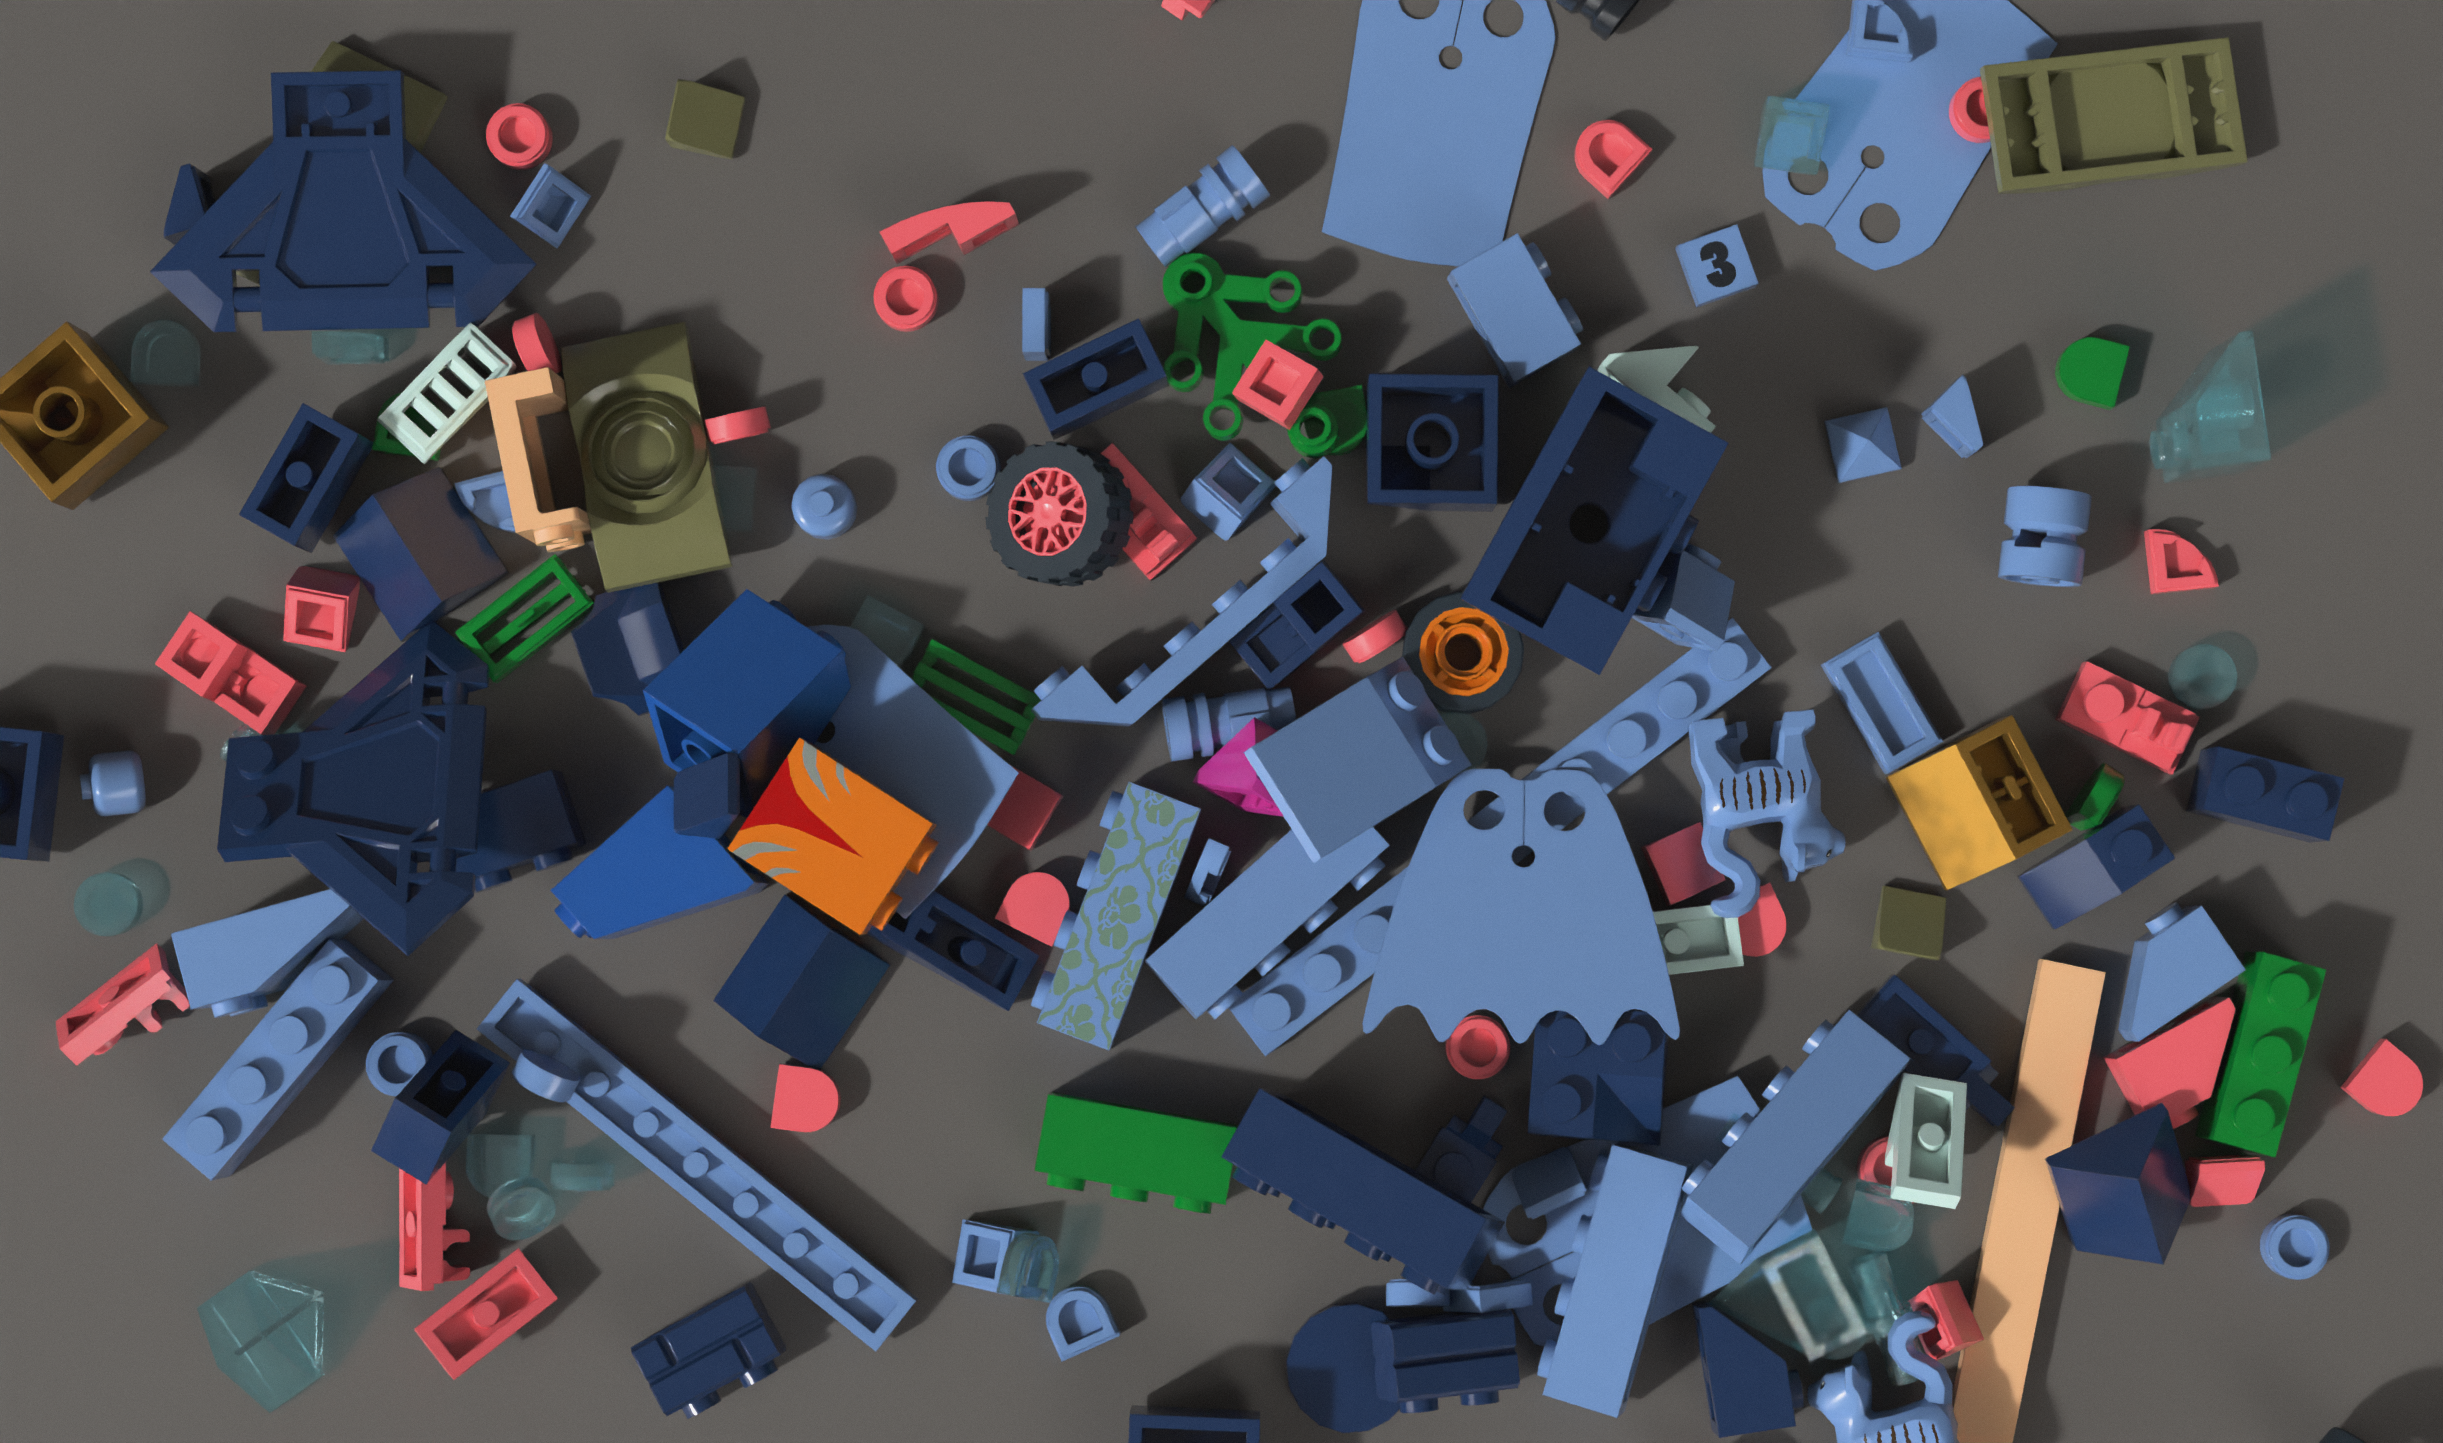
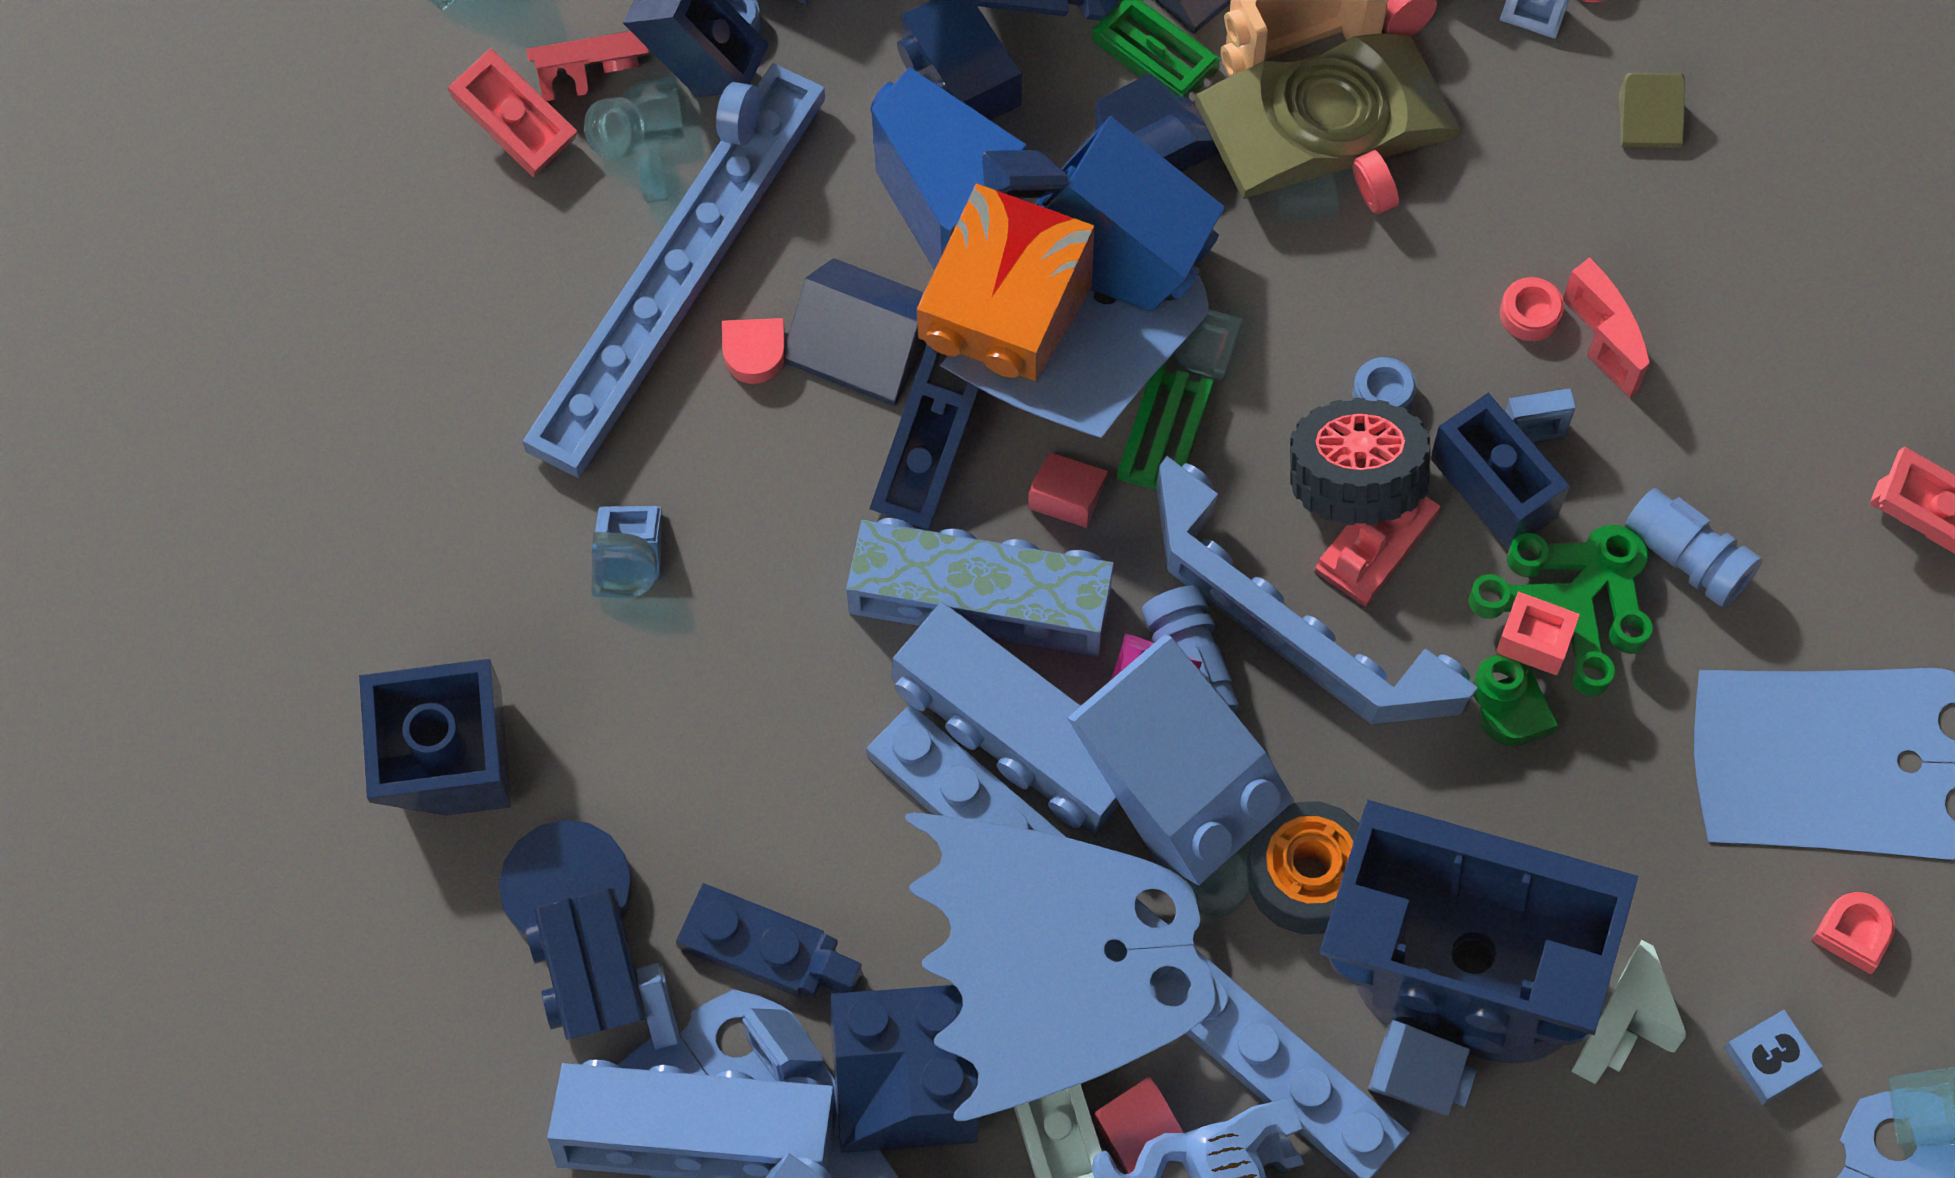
camera: 75 degrees right, 20 degrees down
(710, 1350) = (504, 302): dark blue brick -> none
(824, 506) = (1317, 271): medium blue piece -> none
(1035, 906) = (977, 512): coral tile -> none
(1079, 1321) = (577, 625): medium blue tile -> none
(1134, 1151) = (751, 643): green brick -> none
(1208, 872) = (1047, 659): medium blue tile -> none
(1227, 491) = (1418, 620): medium blue slope -> none
(1297, 625) = (1306, 702): dark blue brick -> none
(1362, 1190) = (742, 840): dark blue brick -> none
(1375, 637) = (1307, 777): coral tile -> none
(1406, 1294) = (650, 933): medium blue tile -> none
(1432, 441) = (1522, 781): dark blue slope -> none
(1478, 1047) = (903, 951): coral tile -> none
(1516, 309) = (1677, 852): medium blue brick -> none

